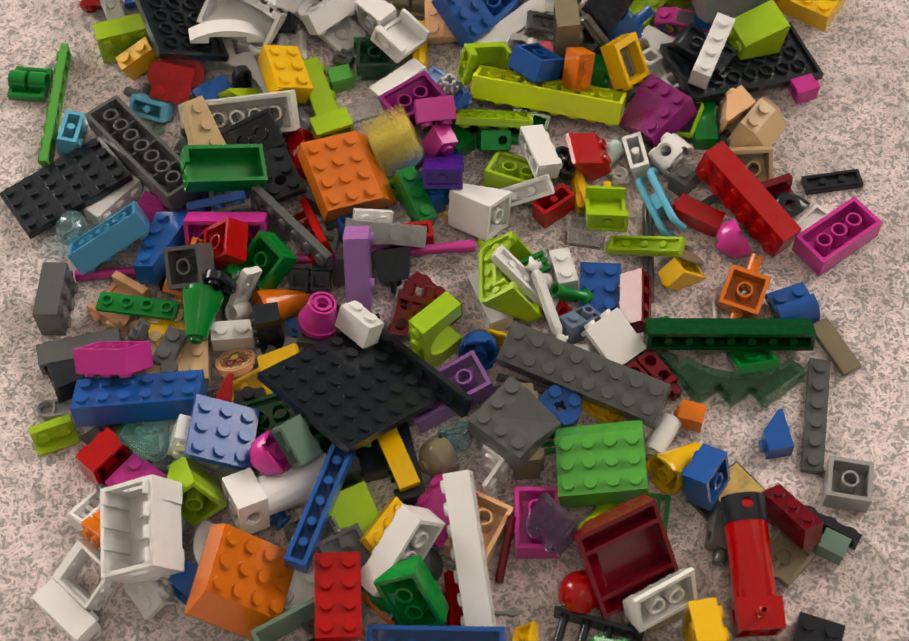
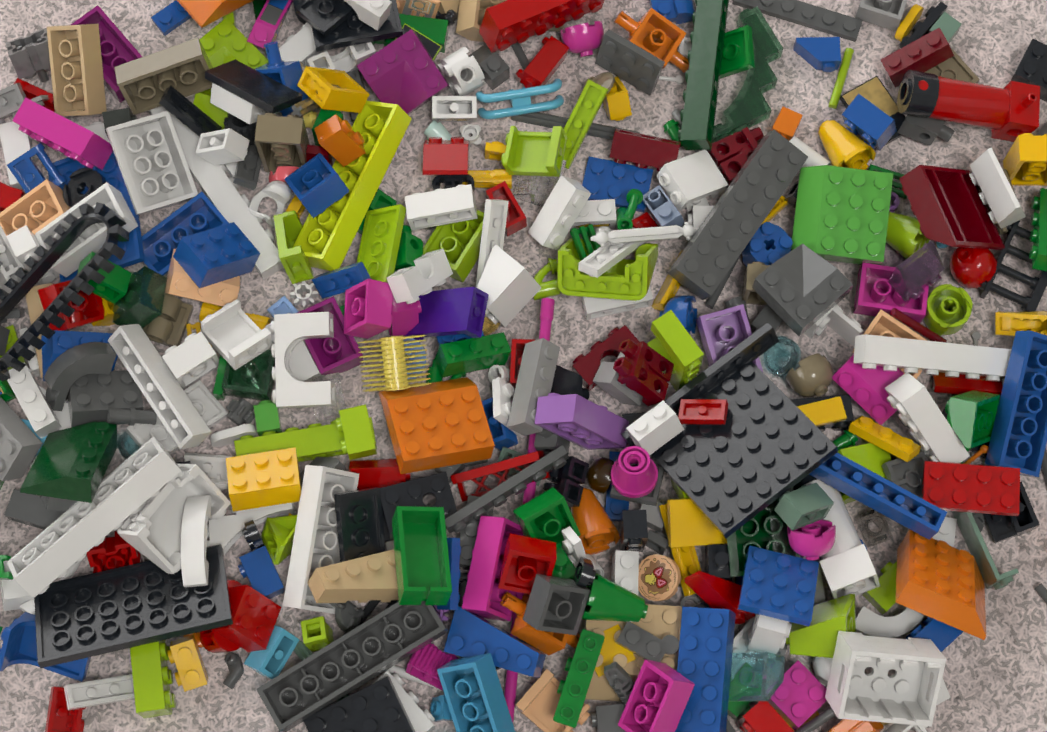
camera: 85 degrees left, 15 degrees up
(167, 131) = (316, 633): none -> lime brick
(323, 56) = (229, 435): none -> white tile
(363, 77) = (288, 332): none -> white arch
(379, 357) = (703, 411): none -> red plate
(379, 497) = (845, 440): none -> green pin
(481, 153) = (418, 280): none -> white arch
(539, 577) = (945, 298): none -> lime brick
(555, 237) = (559, 212): none -> white brick
(716, 276) = (629, 62): none -> dark grey plate
(761, 462) = (841, 78): none -> lime bar
(830, 509) = (909, 22): none -> yellow tile

